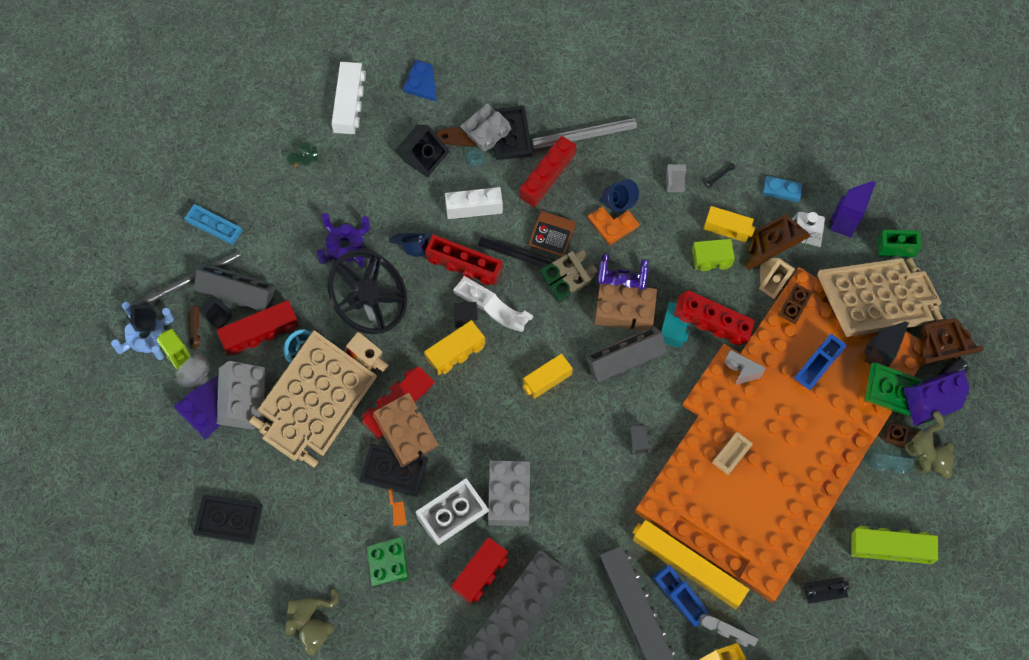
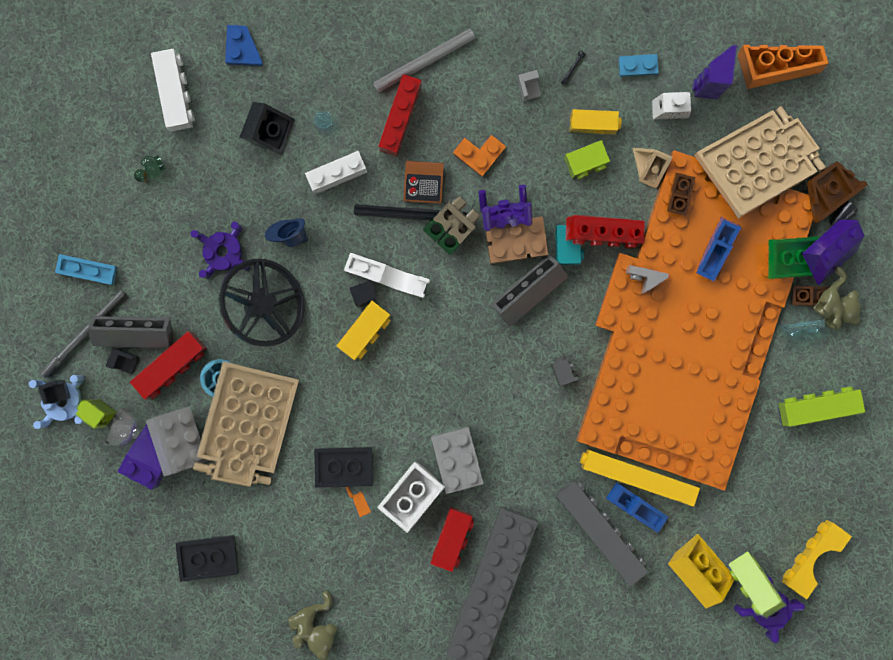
camera: 20 degrees left, 20 degrees up
(193, 319) = (112, 393): reddish brown piece -> none
(360, 348) = (273, 361): tan torso -> none
(387, 562) = (365, 554): green hinge -> none
(405, 430) = (343, 434): medium nougat piece -> none
(415, 383) = (326, 403): red brick -> none
(455, 137) = (299, 100): reddish brown piece -> none
(464, 260) = (345, 238): red brick -> none
(486, 127) = (324, 85): light grey plate -> none
(517, 142) = (349, 81): black plate -> none
(547, 376) = (459, 334): yellow brick -> none
(621, 195) = (479, 122): dark blue piece -> none
(726, 630) = (688, 528): light grey hinge -> none
(732, 453) = (655, 364): tan tile -> none
(774, 239) = (644, 128): reddish brown wing -> none
(826, 590) = (767, 463): black hinge -> none
(885, 345) = (780, 217): black slope -> none
(899, 243) = (767, 95): green brick -> none
(909, 215) = (776, 64): none -> orange wedge

